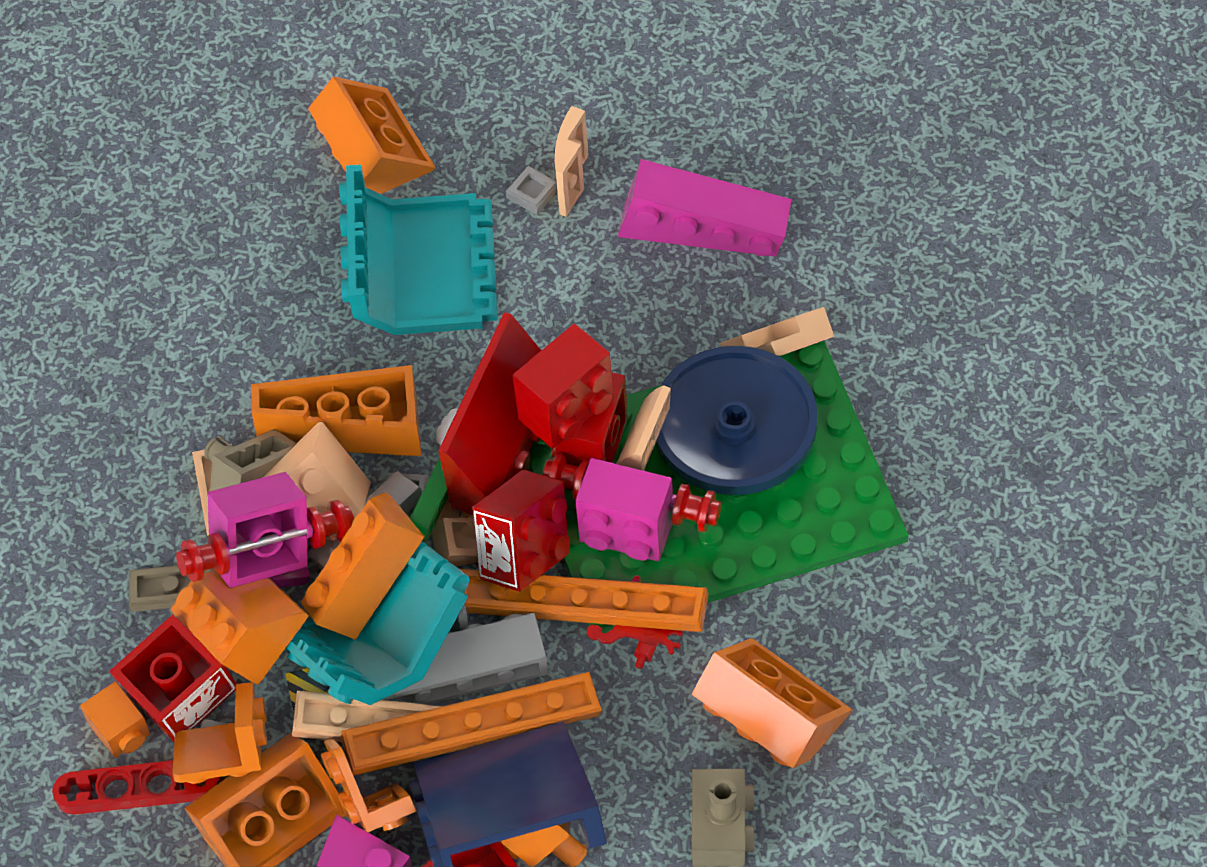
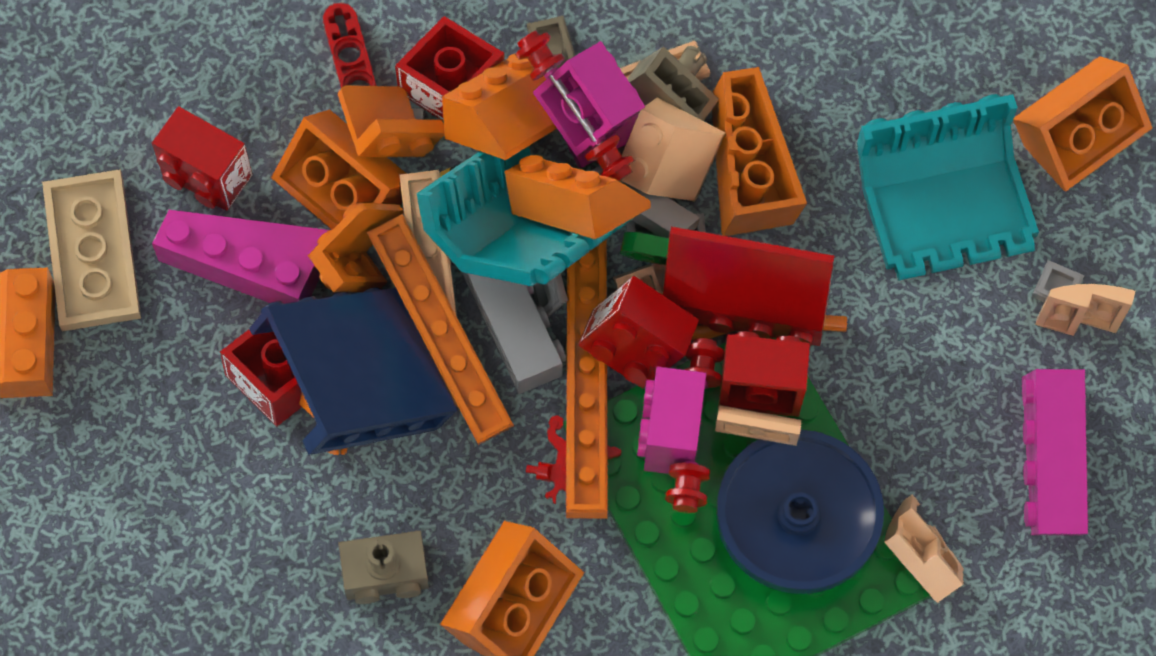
camera: 75 degrees right, 10 degrees up
(115, 720) = (404, 33): orange brick -> none
(564, 386) = (759, 325): red brick -> none

